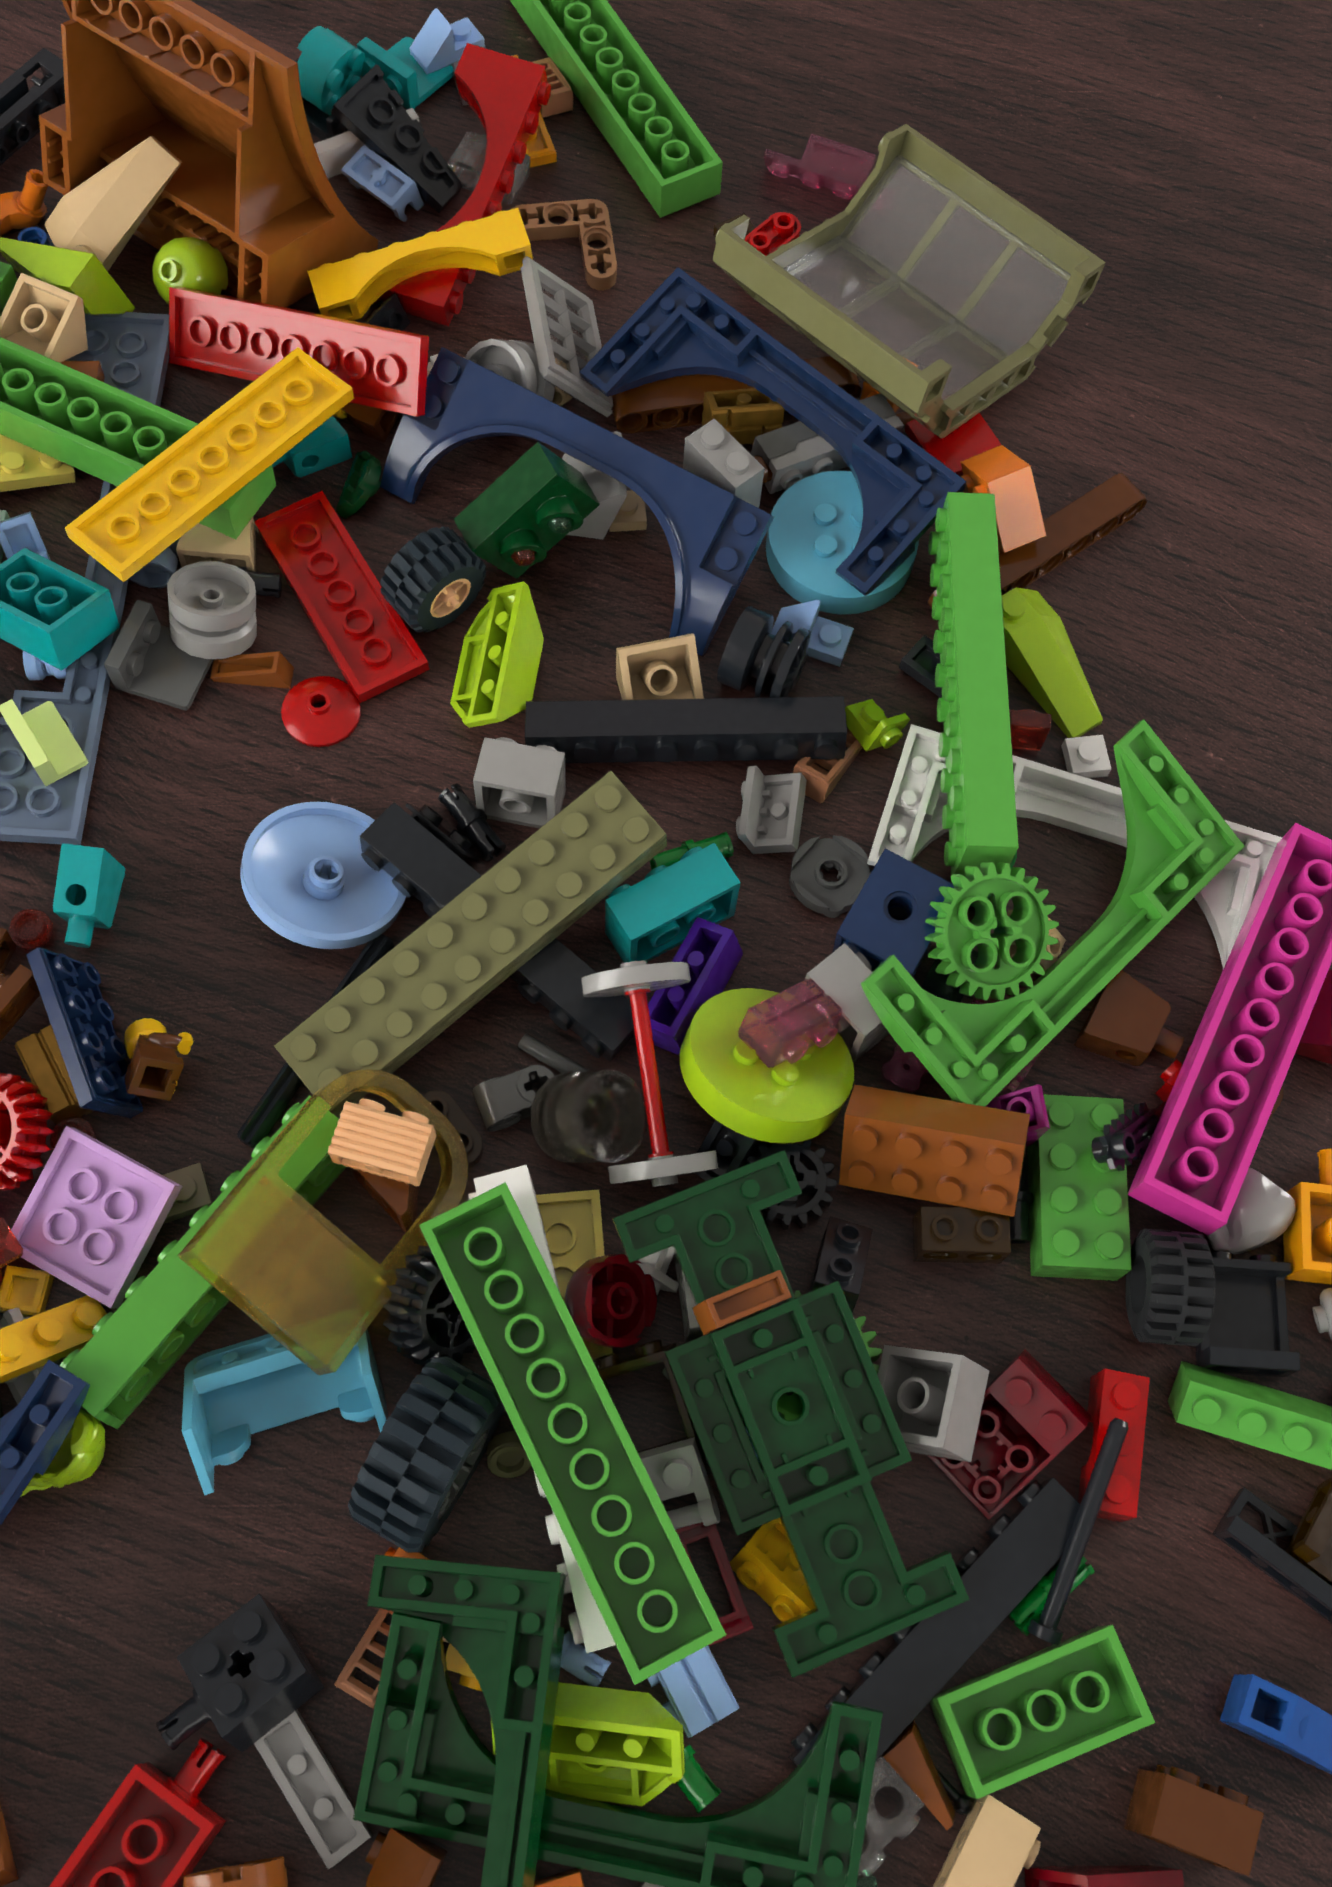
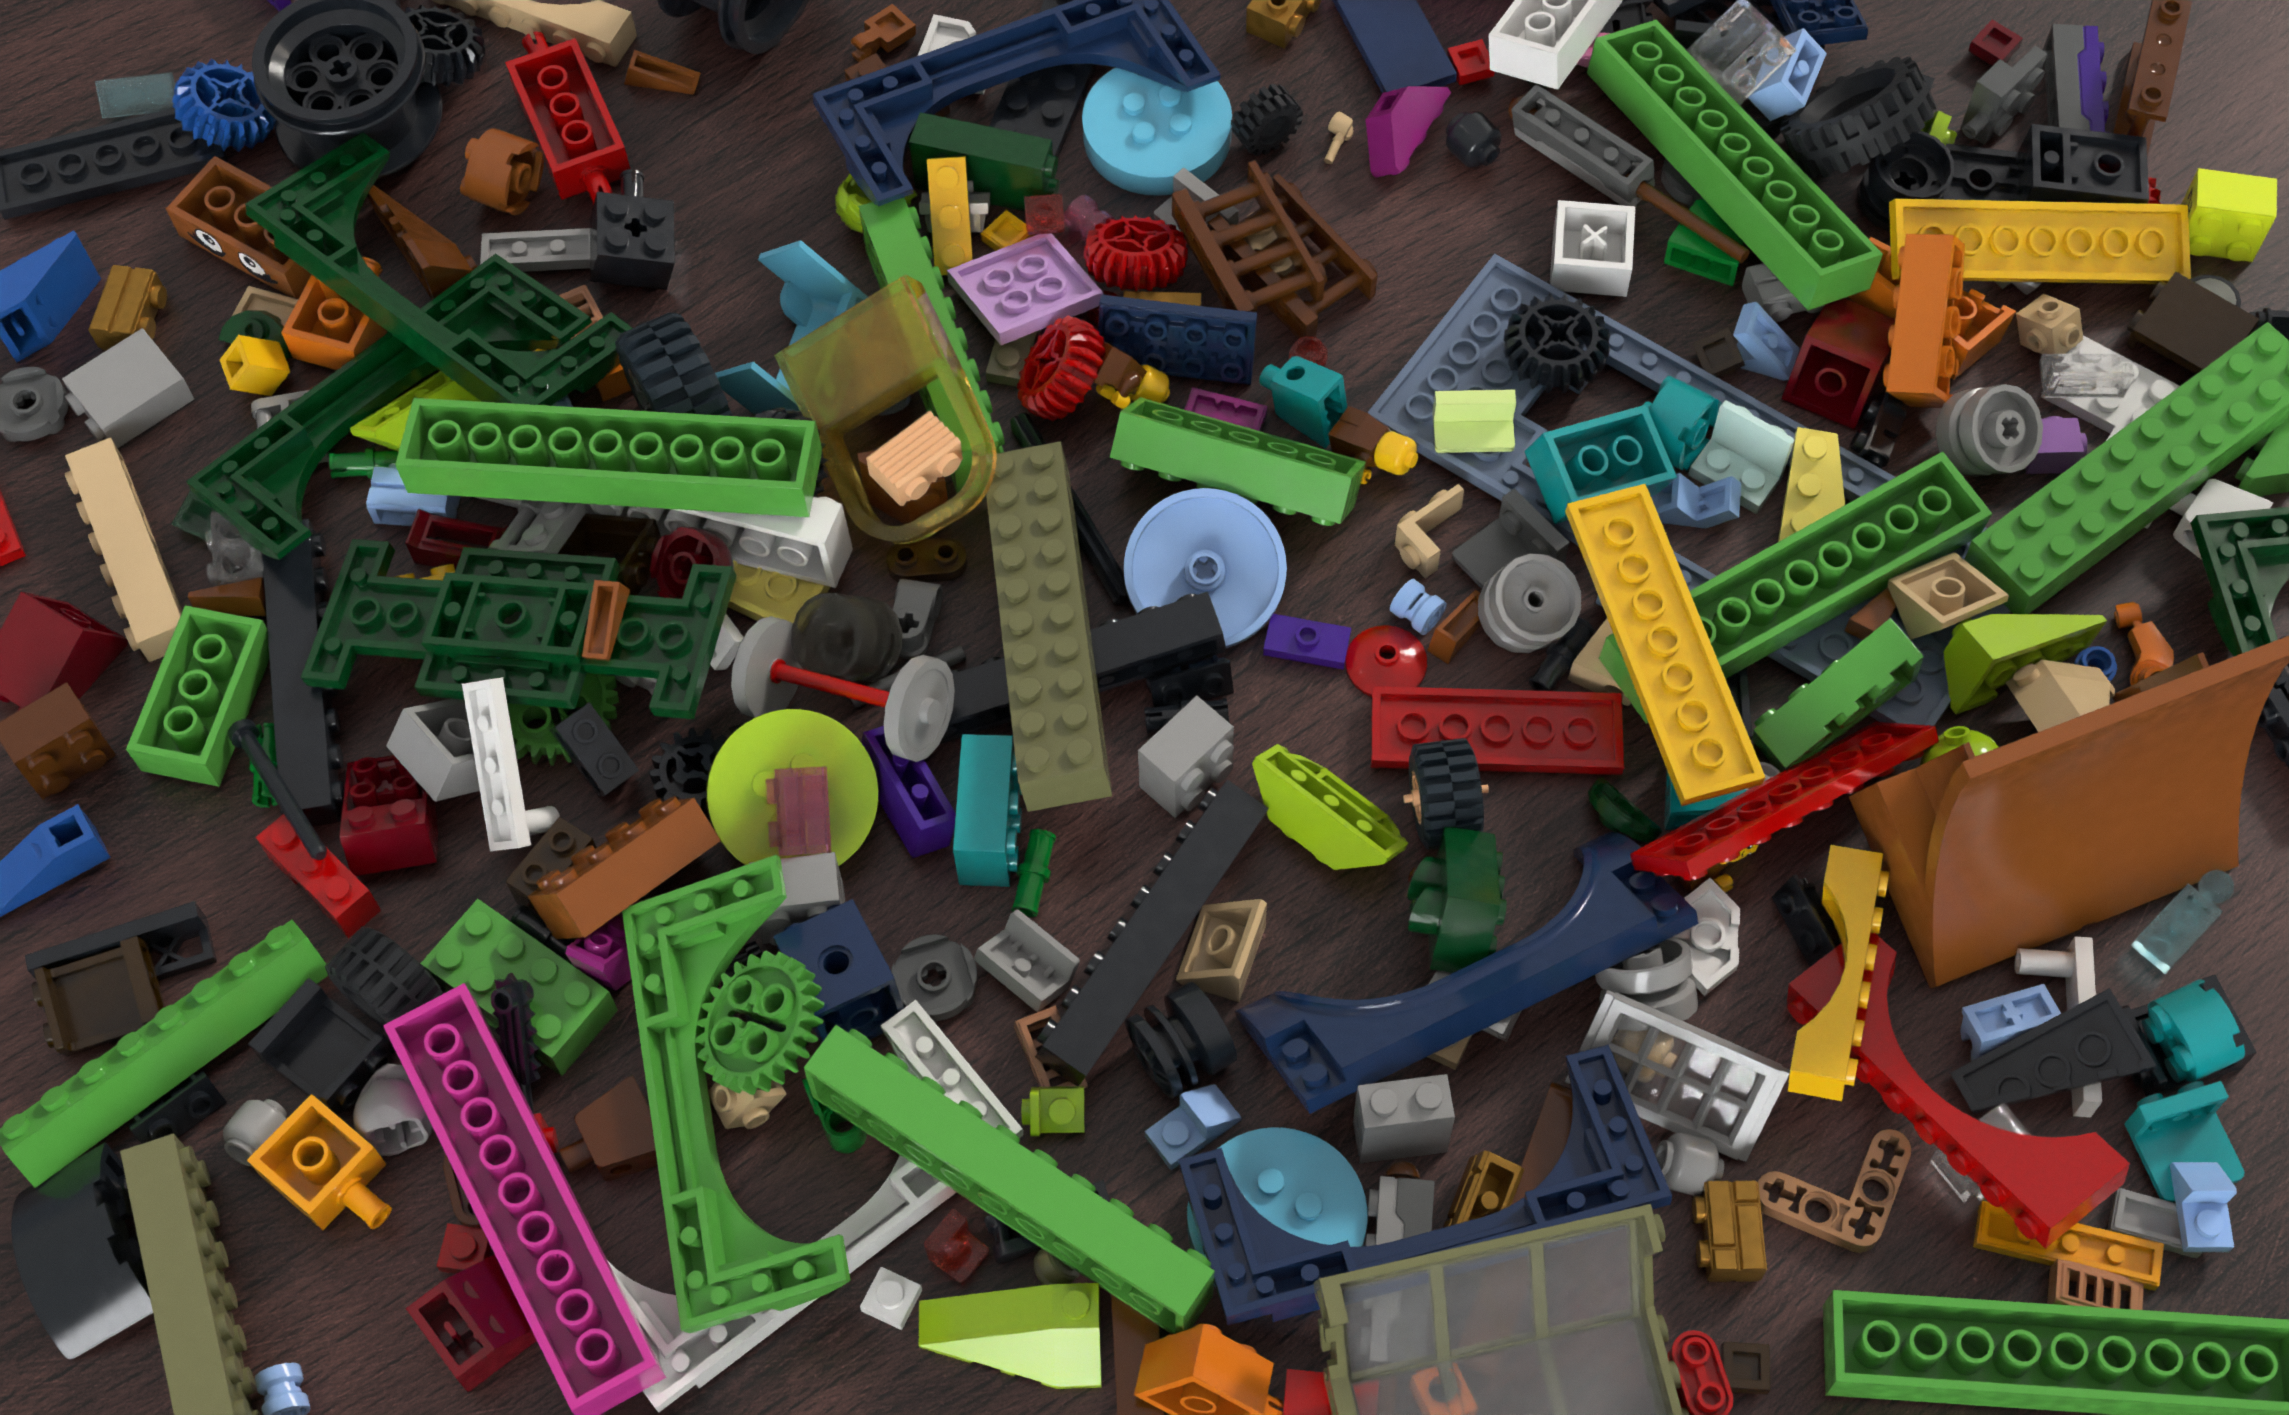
camera: 130 degrees right, 5 degrees down
(109, 816) = (1367, 439): none -> piece
(142, 961) = (1227, 408): none -> magenta plate
(158, 1099) = (1060, 368): none -> red gear
(165, 358) = (1838, 697): none -> bright green wedge
(190, 743) = (1411, 539): none -> tan bracket
(196, 904) = (1237, 461): none -> bright green brick
(257, 702) = (1418, 606): none -> light blue wheel
(339, 772) = (1307, 641): none -> dark purple plate
(614, 312) = (1689, 1162): none -> light grey head
(641, 275) = (1731, 1231): none -> pearl gold brick
(942, 1309) = (497, 769): none -> white piece
(1300, 1082) = (462, 1248): none -> red plate

